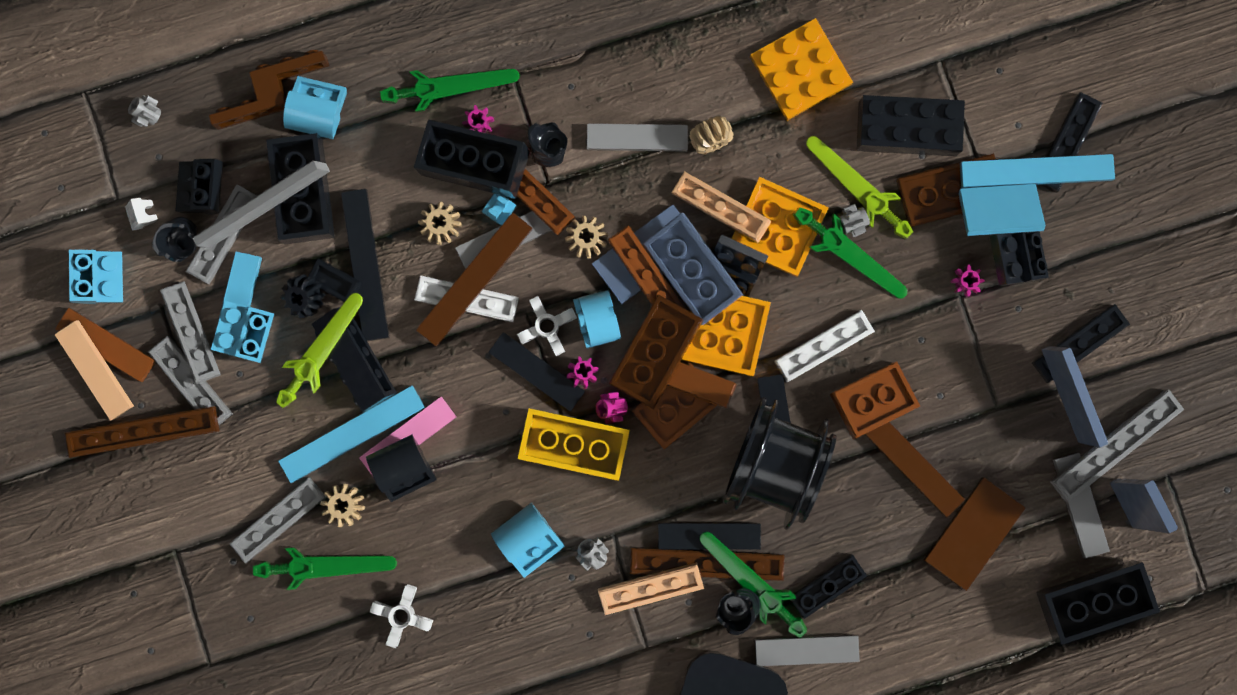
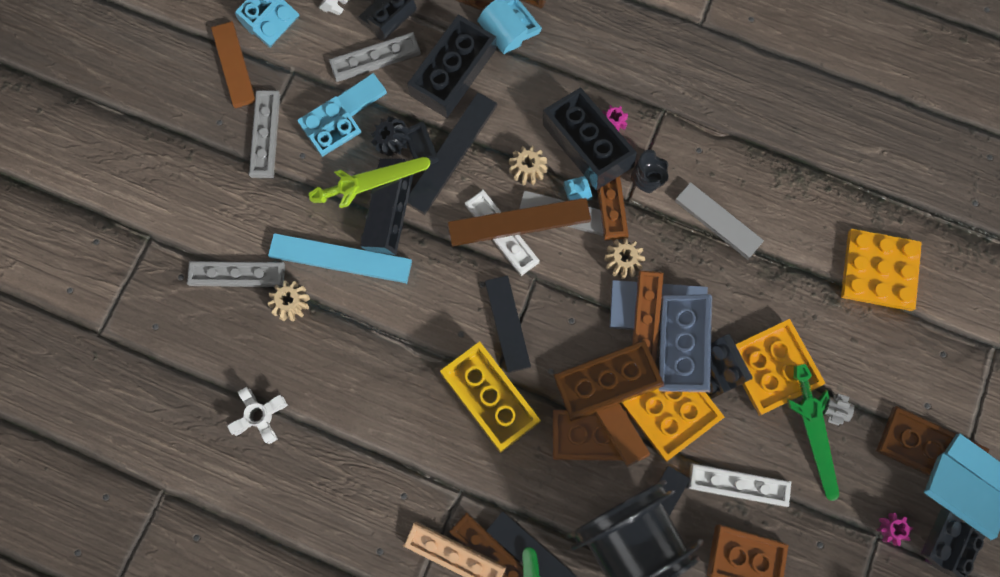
camera: 40 degrees right, 10 degrees down
(94, 370) = (210, 73): light nougat tile -> none
(142, 432) = (203, 138): reddish brown tile -> none
(175, 239) = (340, 32): black hair -> none
(190, 332) = (294, 101): light grey tile -> none
(261, 204) = (418, 49): light grey tile -> none
(324, 566) = (228, 326): green sword -> none
(400, 468) = (351, 308): black brick -> none
(420, 426) = (376, 293): bright pink tile -> none
(440, 87) = (597, 74): green sword -> none
(527, 540) = (395, 439): medium azure brick -> none
(533, 332) = (560, 301): white pin -> none
(578, 378) = (534, 351): dark pink gear -> none
(592, 554) = (433, 491): light grey gear -> none
(597, 319) = (584, 320): medium azure brick -> none
(611, 407) = (540, 394): dark pink gear -> none
(711, 135) = (777, 259): tan gear -> none
(721, 207) = (743, 318): light nougat tile -> none
(873, 201) = (861, 395): lime sword -> none
(910, 125) = (938, 375): black brick -> none

